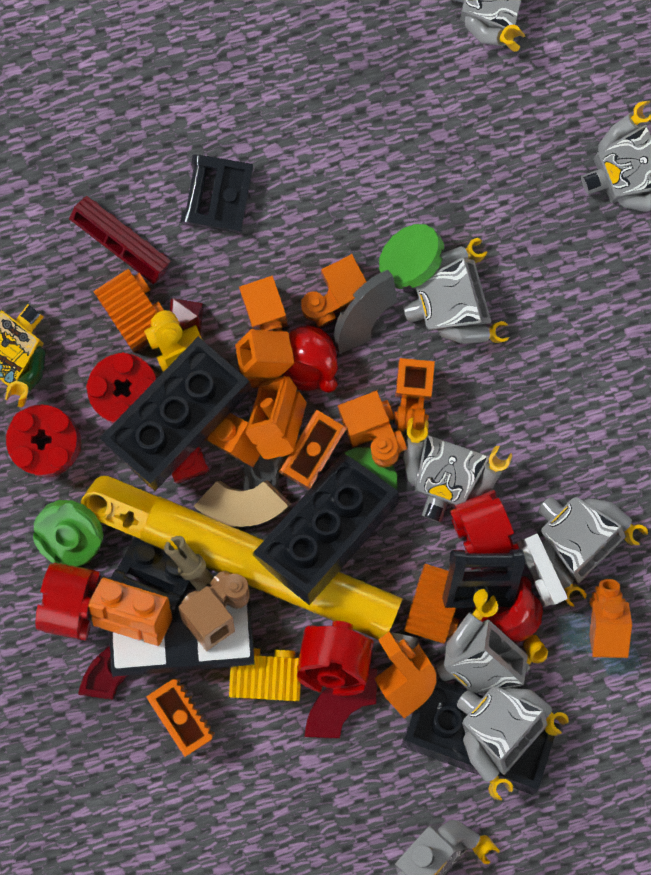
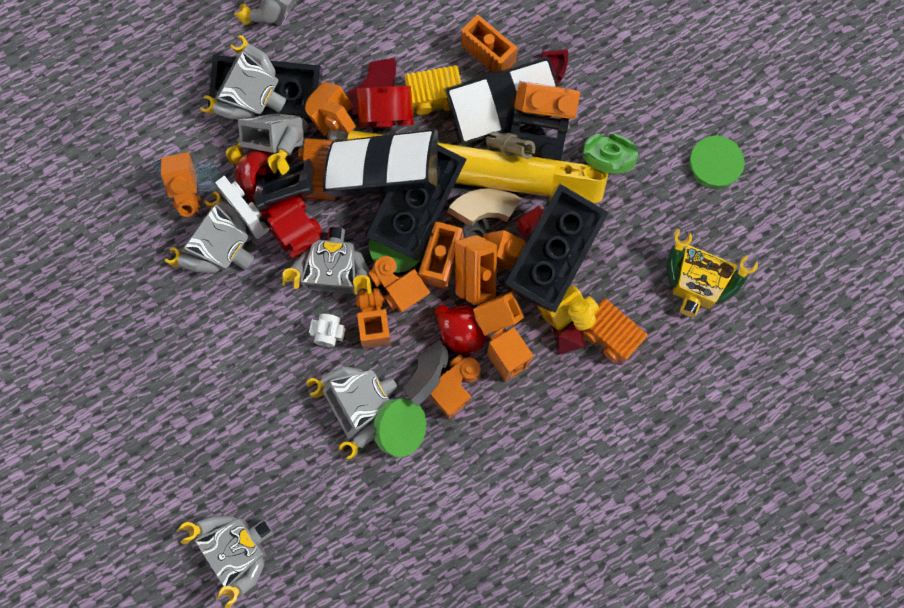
camera: 160 degrees right, 10 degrees down
(29, 426) = (657, 202): red brick -> none
(66, 601) = (597, 103): red brick -> none
(106, 378) = (610, 279): red brick -> none
(120, 239) = (639, 386): dark red piece -> none
(206, 611) = (490, 112): medium nougat brick -> none
(228, 194) = (562, 443): black plate -> none
(359, 569) = (381, 164): none -> slope
(470, 394) = (327, 330): none -> white gear

